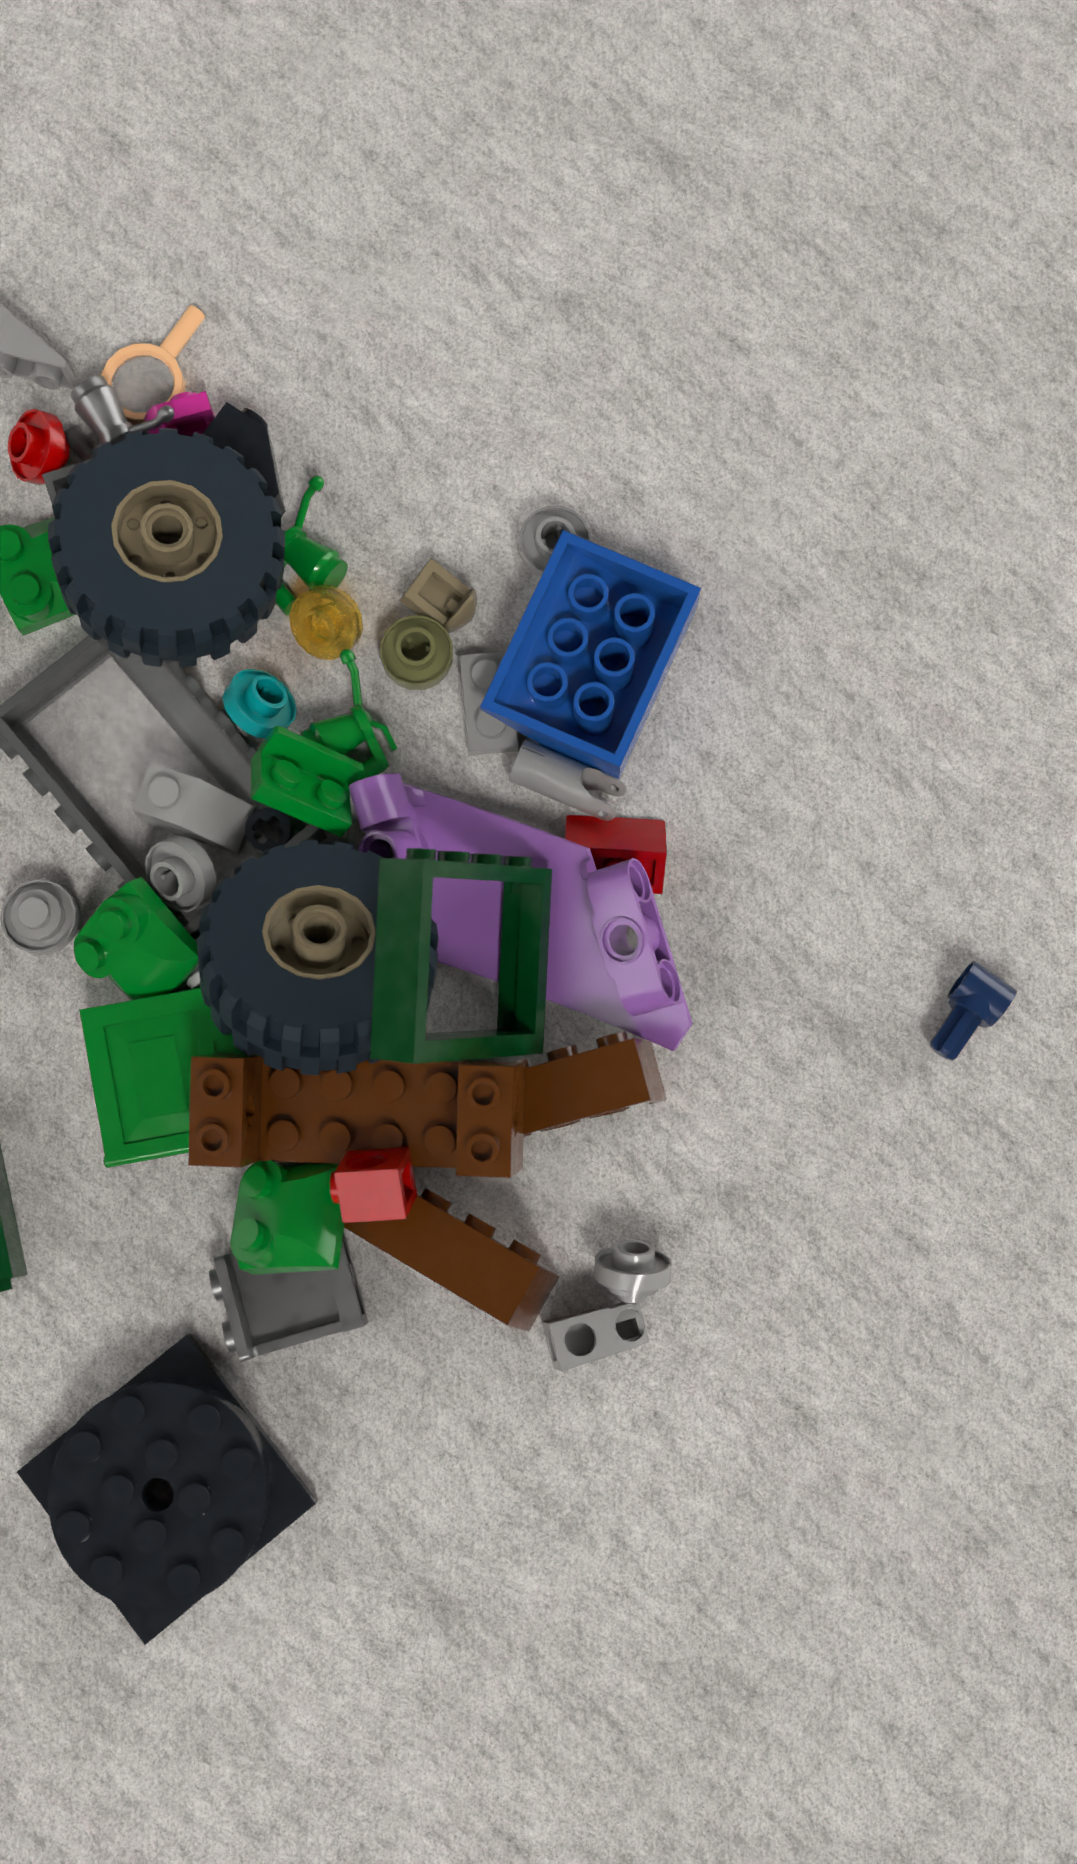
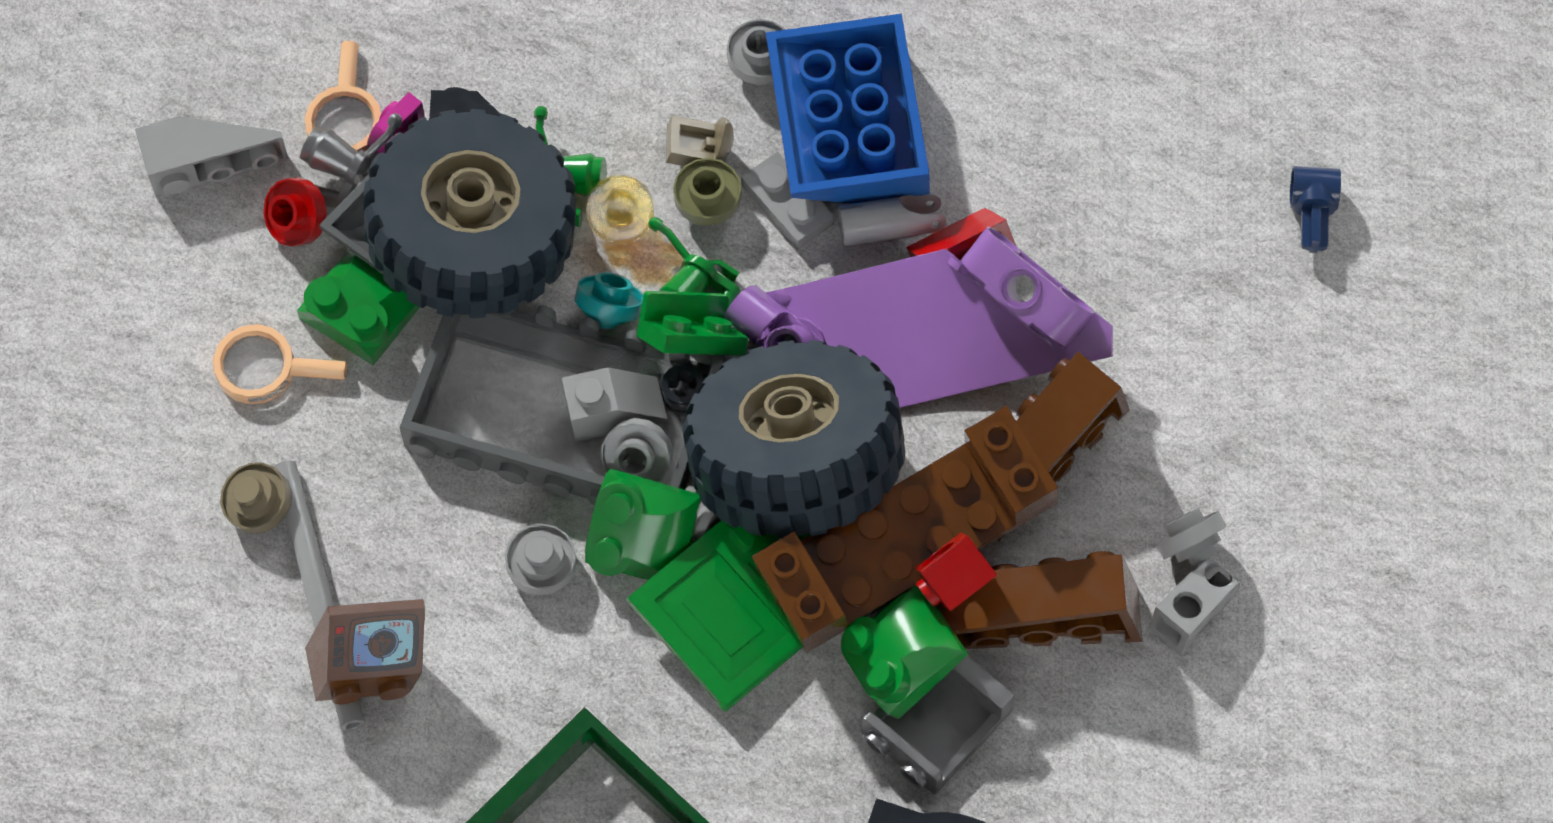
camera: 25 degrees left, 15 degrees down
(404, 955) = (880, 377): dark green window -> none

